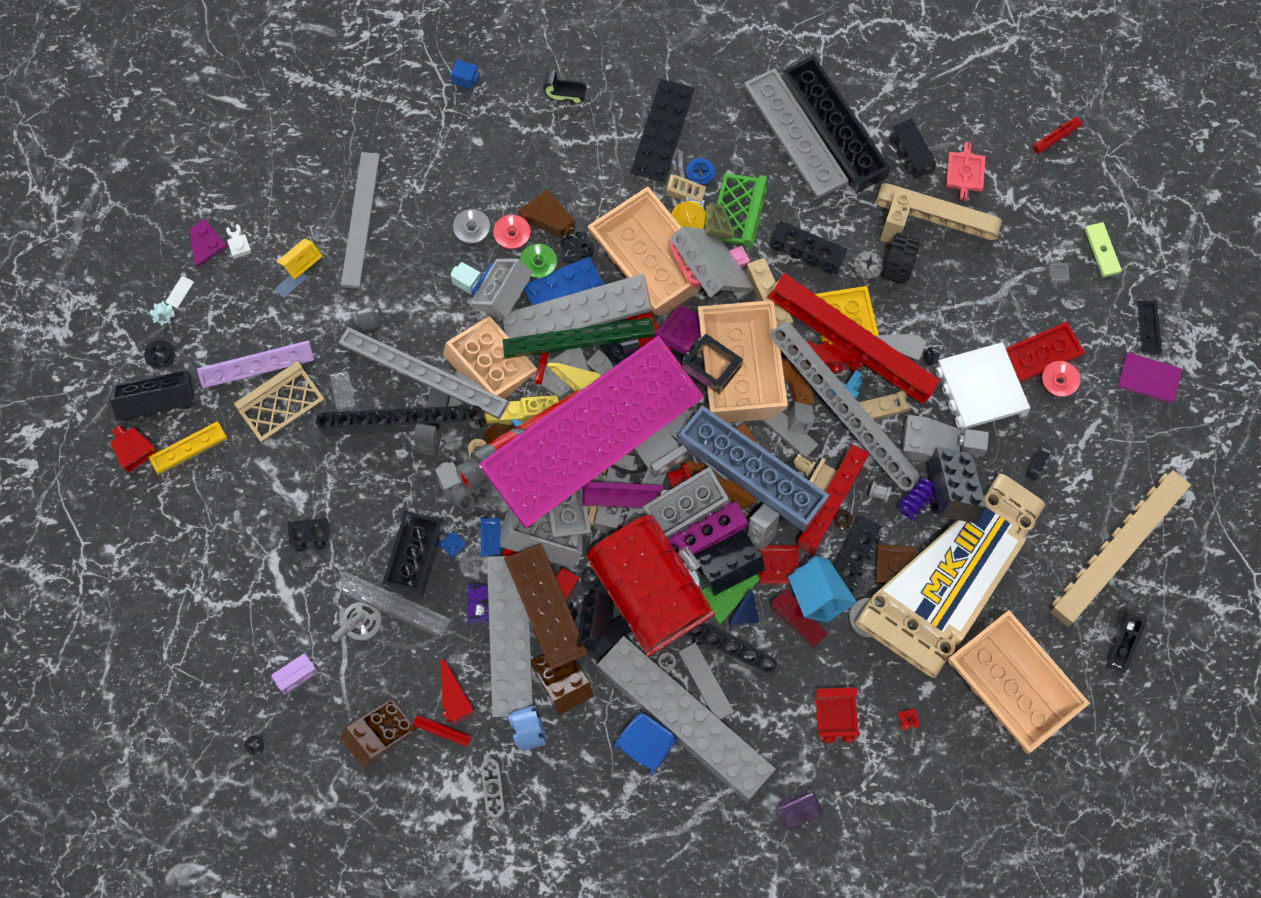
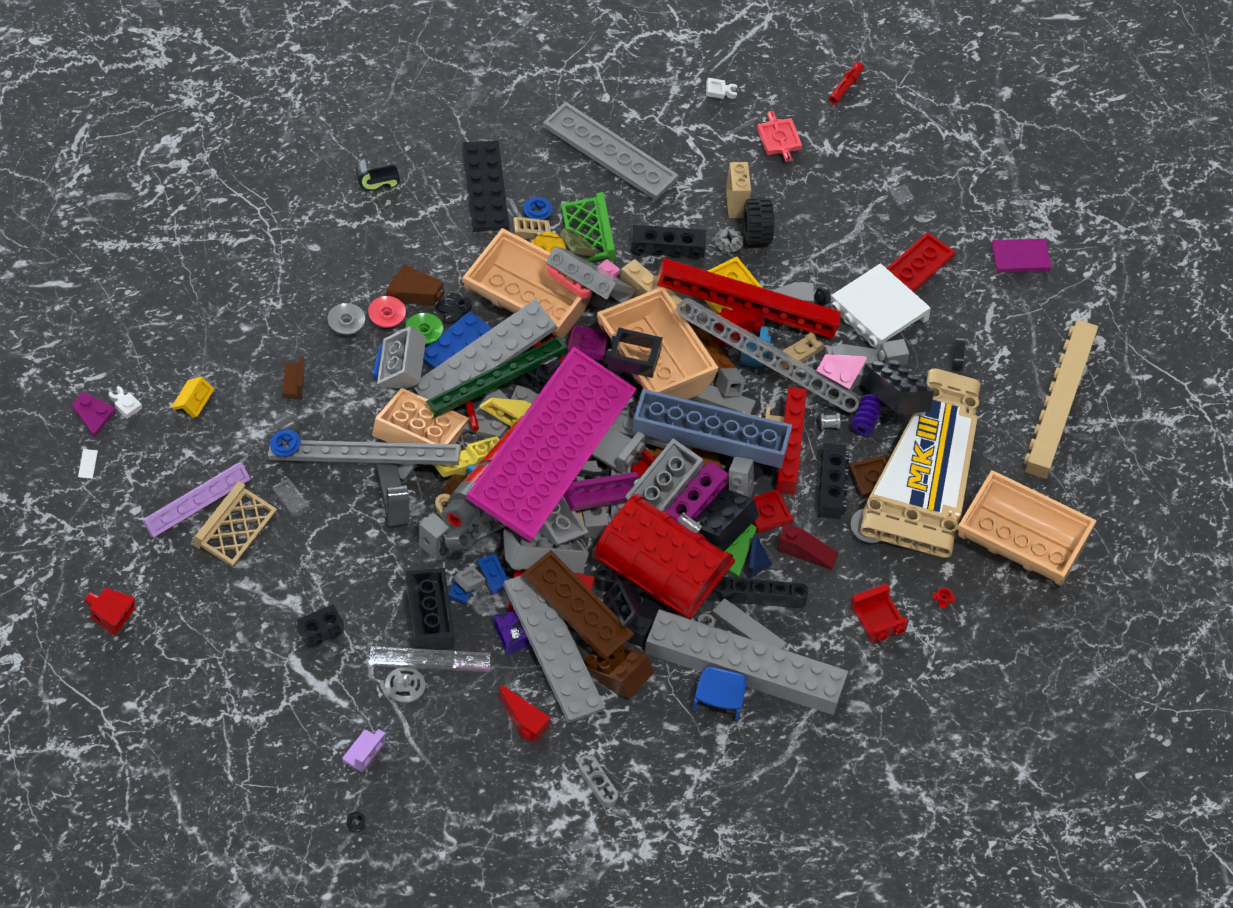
camera: 25 degrees left, 15 degrees down
(151, 395) = (108, 558): black slope -> none
(159, 346) = (92, 516): black gear -> none
(165, 313) = (85, 479): light aqua gear -> none
(187, 448) = (164, 593): yellow tile -> none
(289, 284) = (193, 424): sand blue sticker -> none
(350, 334) = (288, 436): none -> blue gear
(360, 220) = (235, 347): light grey tile -> none
(377, 733) = (467, 771): reddish brown slope -> none
(394, 415) = (356, 506): black beam -> none
(398, 271) = (294, 379): none -> reddish brown panel
(442, 731) = (508, 749): red axle -> none
(463, 538) = (470, 579): none -> light grey bracket
(465, 74) = (276, 192): blue brick -> none
(465, 277) = (361, 363): light aqua brick -> none
(528, 728) = (608, 716): medium blue brick -> none
(799, 810) = (884, 701): clear purple brick -> none
(820, 590) = (818, 513): dark azure slope -> none
(836, 124) = (645, 130): black brick -> none
(842, 525) = (810, 459): dark brown bush -> none
(911, 445) = (841, 368): none -> bright pink wing
(912, 149) = (723, 131): black brick -> none
(928, 100) = (718, 89): none -> white plate
(944, 213) = (778, 176): tan beam -> none
(1063, 371) = (945, 278): coral dish -> none
(1100, 241) = (931, 164): yellowish green tile -> none
(1126, 640) = (1101, 469): black slope -> none
(1149, 327) = (1001, 215): black tile -> none

